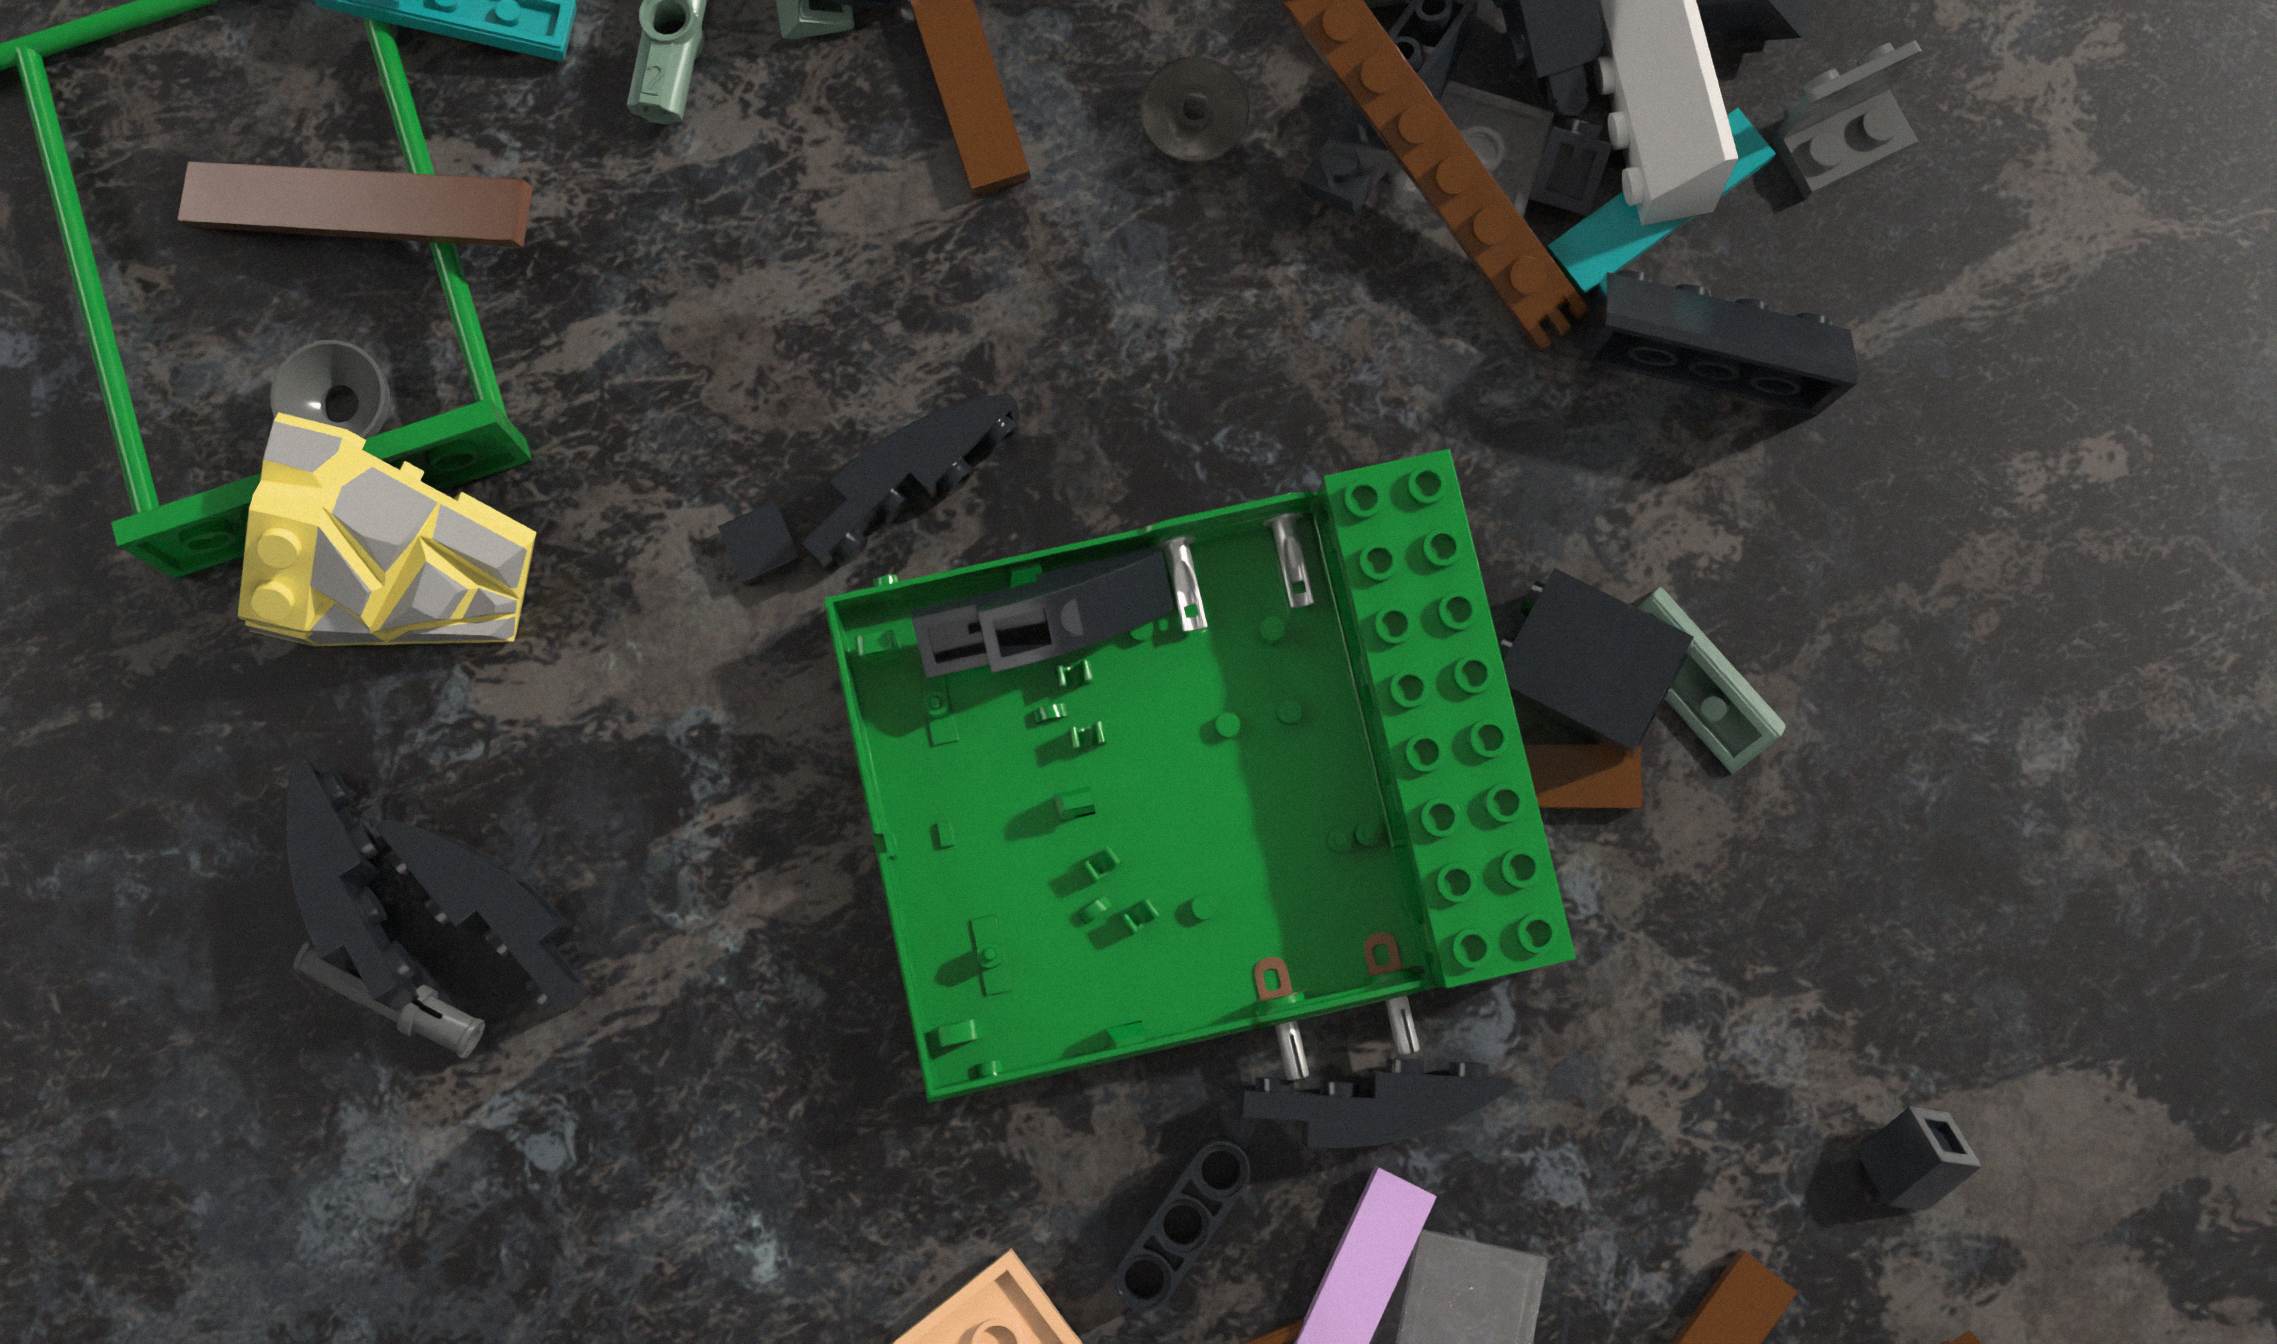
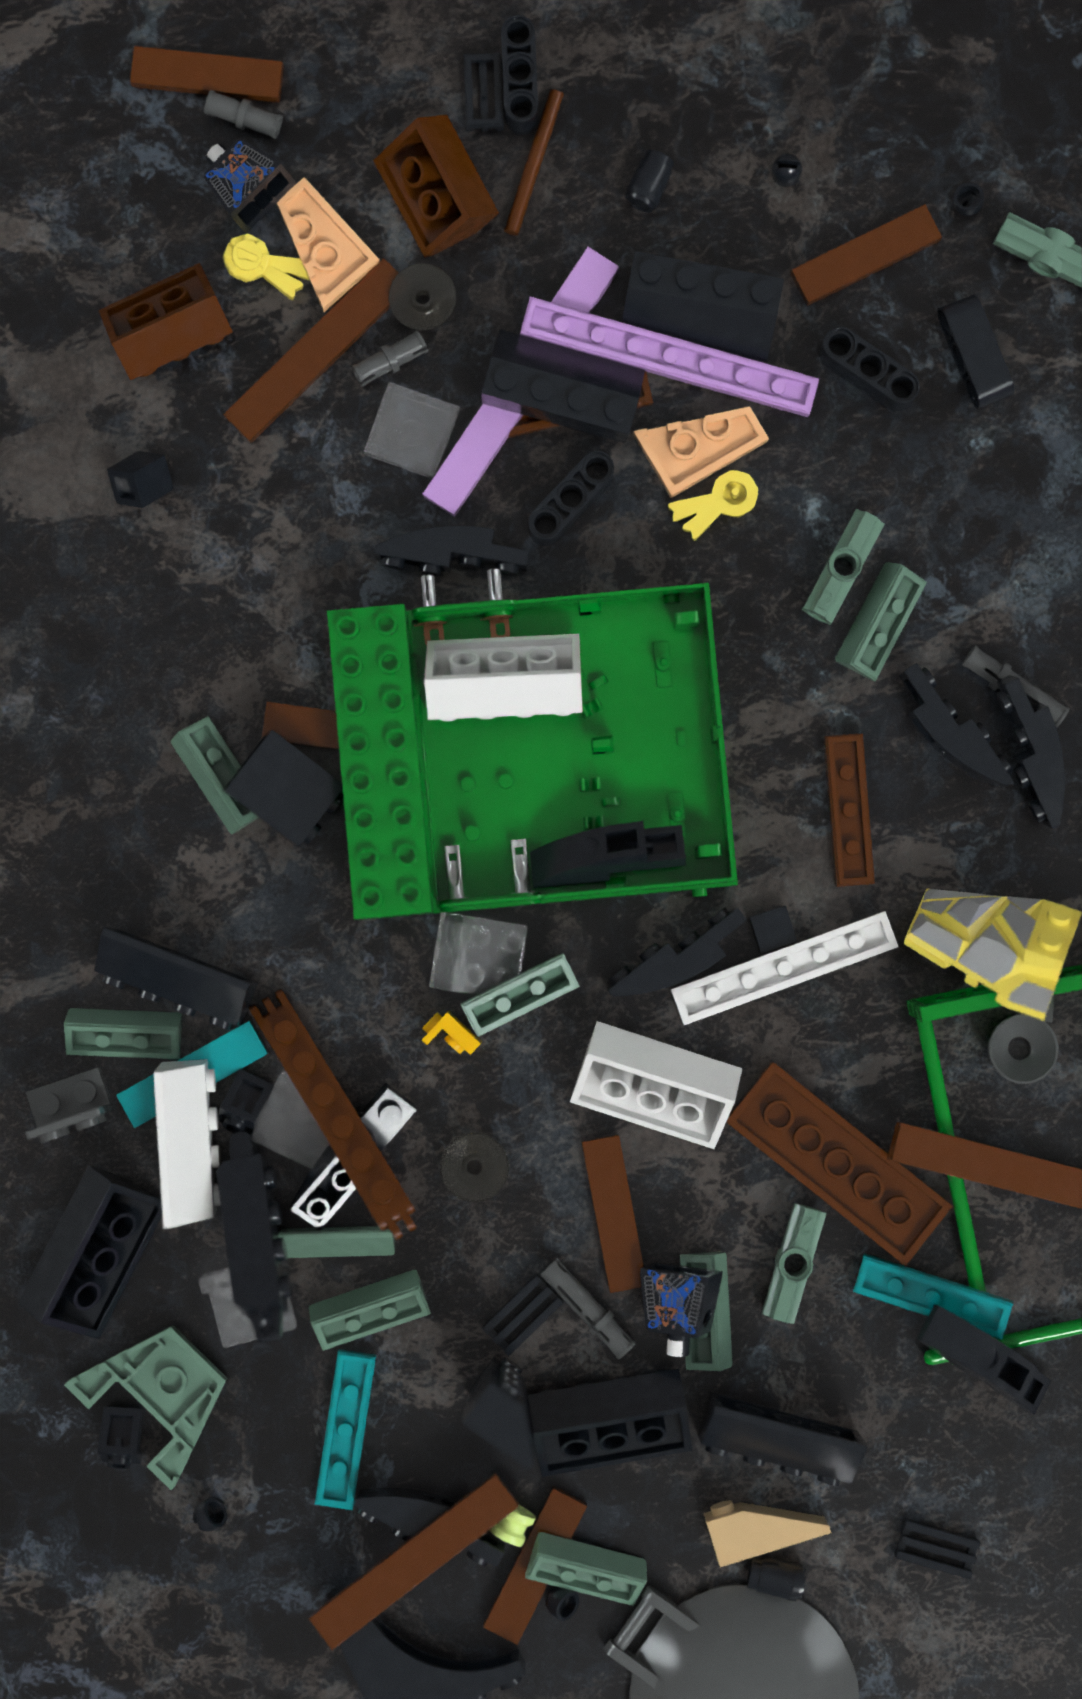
camera: 170 degrees left, 5 degrees up
(618, 188) = (838, 1163): none -> reddish brown plate
(630, 1082) = (880, 620): none -> sand green slope
(653, 754) = (849, 810): none -> reddish brown tile
(683, 1202) = (853, 546): none -> sand green piece
(730, 482) = (784, 968): none -> white plate
(906, 1265) = (731, 495): none -> light yellow piece
(919, 273) = (656, 1085): none -> white slope
(1157, 381) = (520, 994): none -> sand green slope
(1232, 435) = (476, 953): none -> clear bracket
(1249, 312) = (458, 1036): none -> yellow bracket
(1257, 890) = (503, 677): none -> white slope
(1781, 253) = (123, 1033): none -> sand green slope

